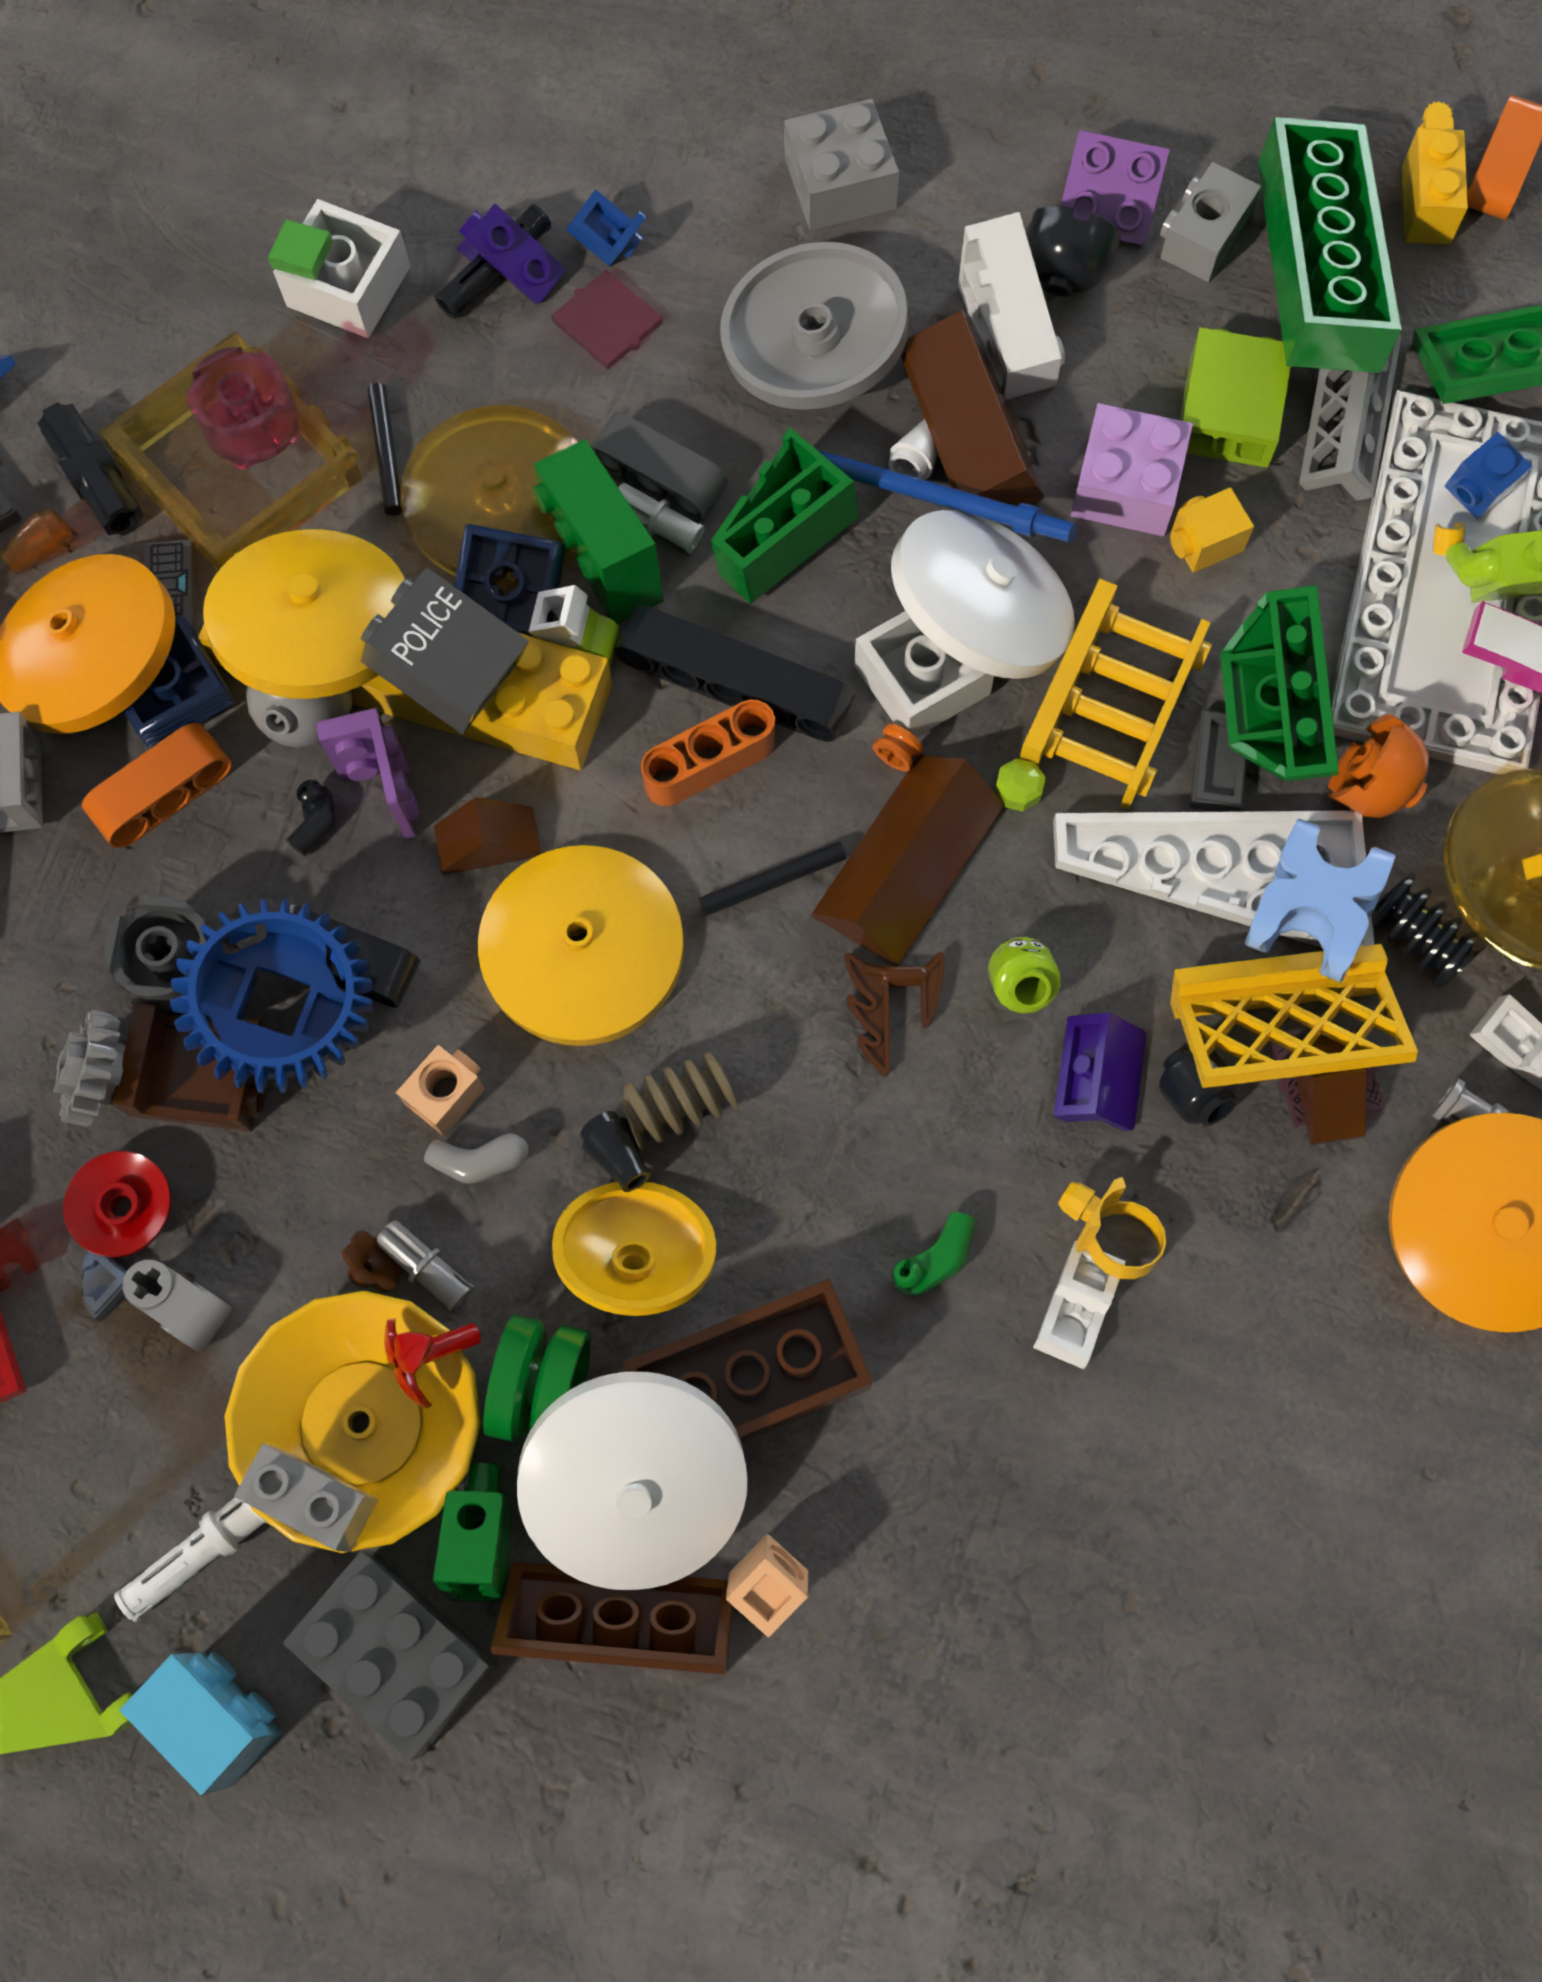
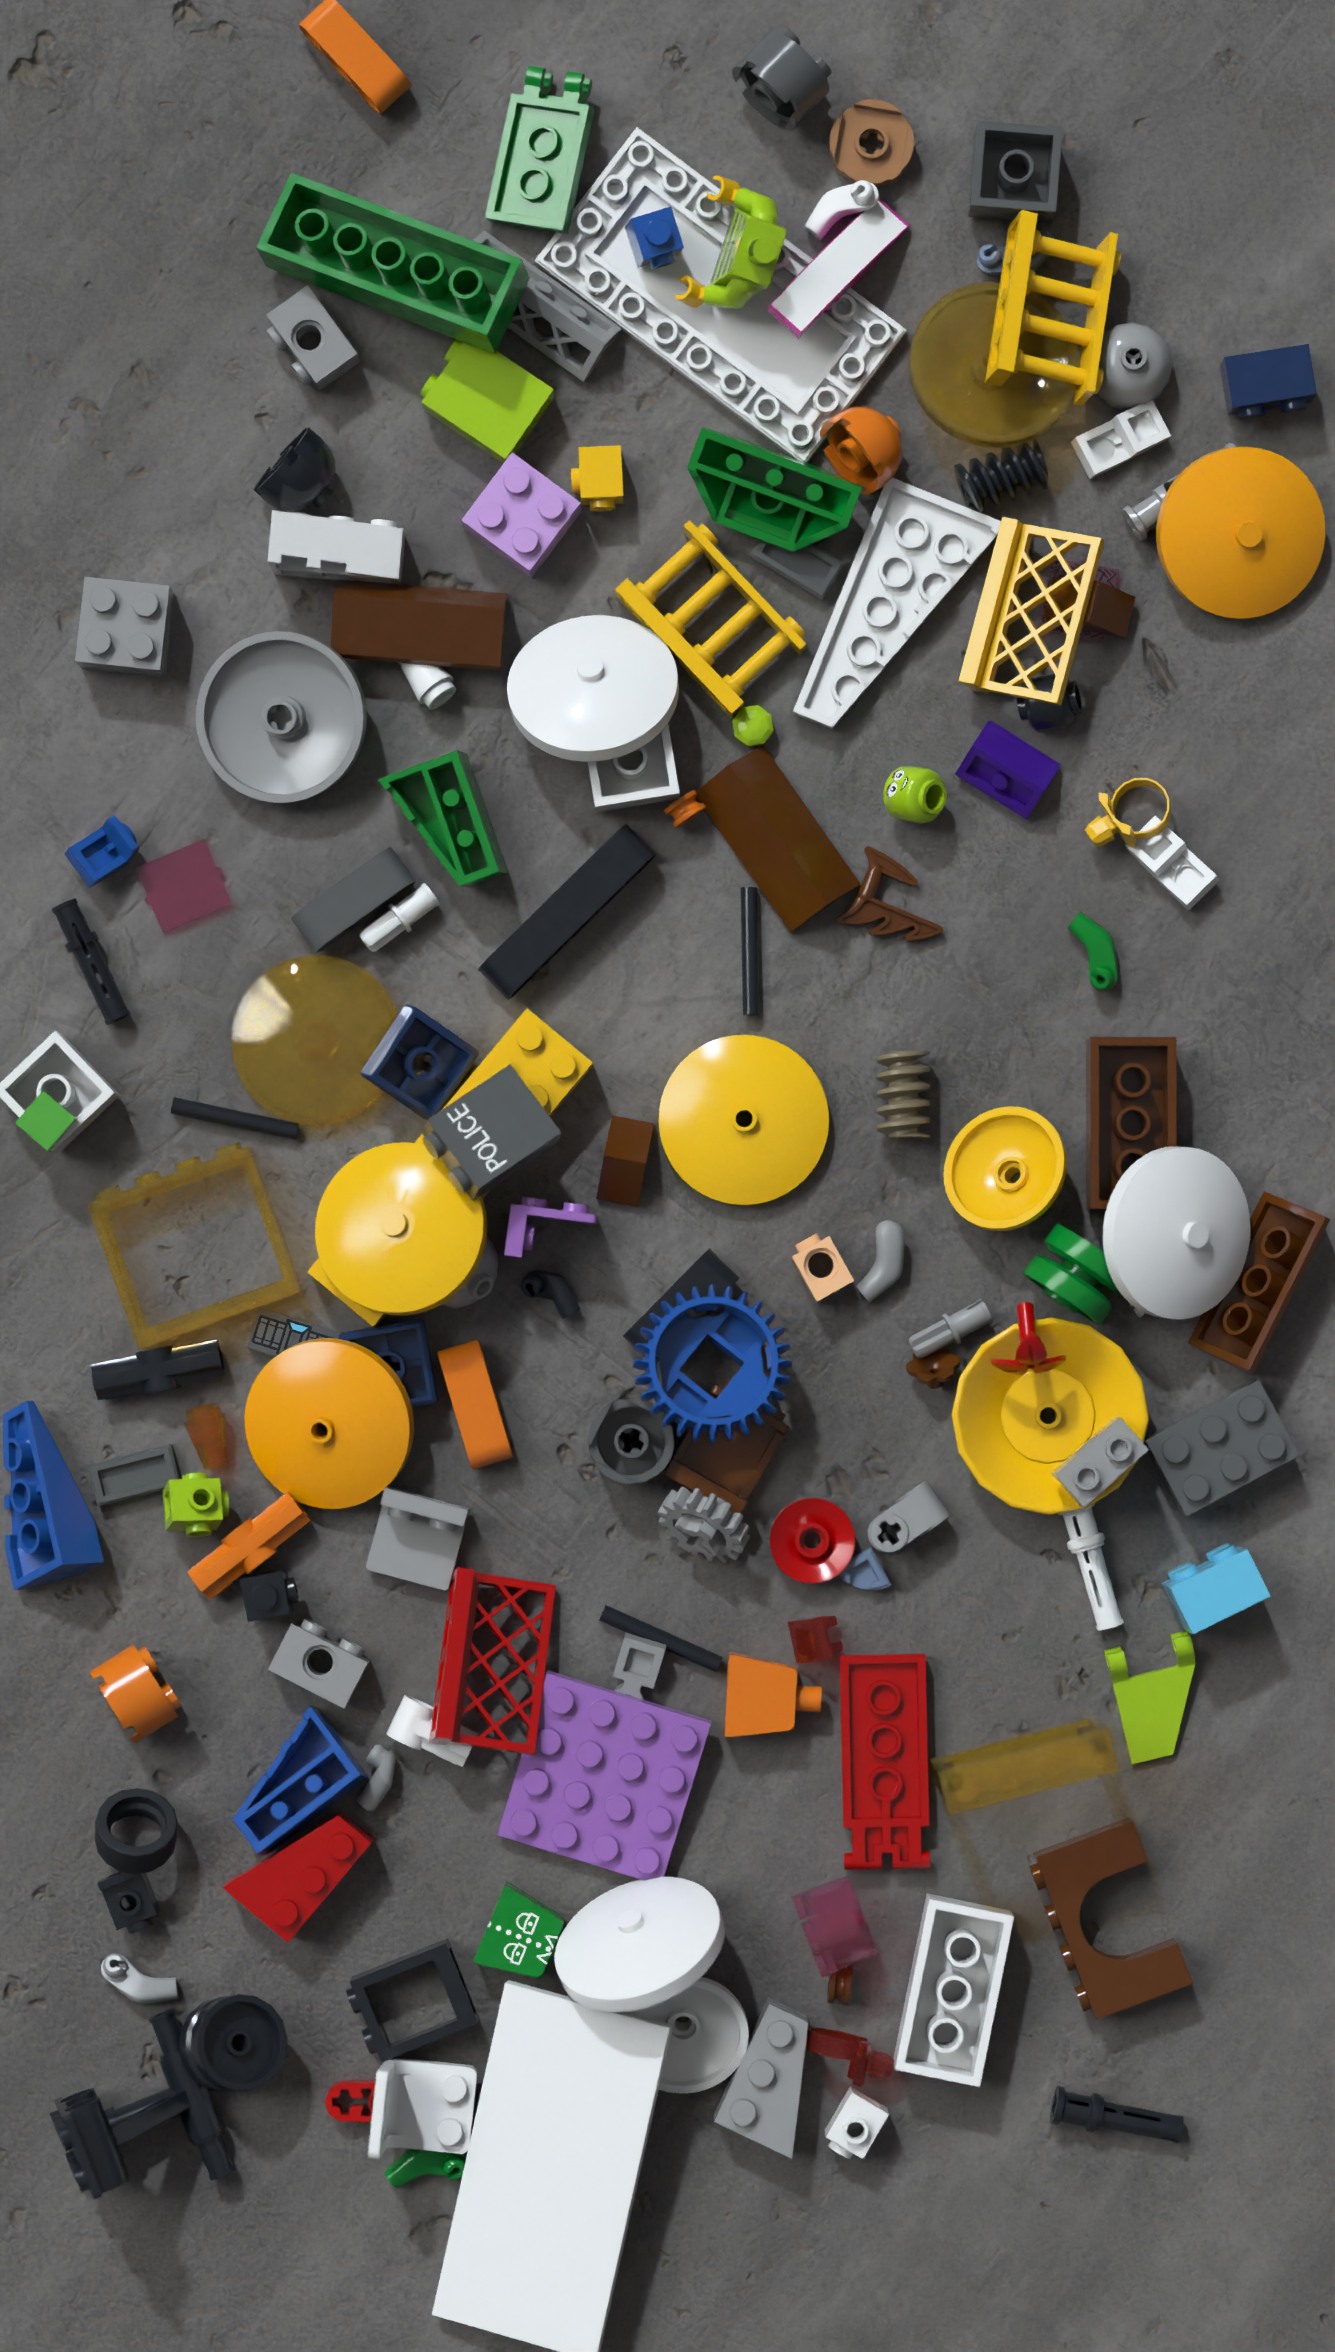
camera: 70 degrees left, 15 degrees up
(243, 406) = (163, 1203): clear pink brick -> none
(475, 1561) = (1182, 1368): green torso -> none
(510, 252) = (91, 945): dark purple bracket -> none
(577, 624) = (485, 1021): white leg -> none
(599, 530) = (403, 971): green wedge -> none
(614, 1148) = (922, 1155): black cone -> none
(717, 732) = (624, 938): orange beam -> none
(767, 1585) = (1280, 1167): light nougat brick -> none
(1023, 518) = (547, 629): blue bar -> none
(1115, 182) = (240, 402): medium lavender bracket -> none
(1320, 900) = (954, 549): light blue piece -> none
(1434, 179) = (351, 130): yellow hinge -> none

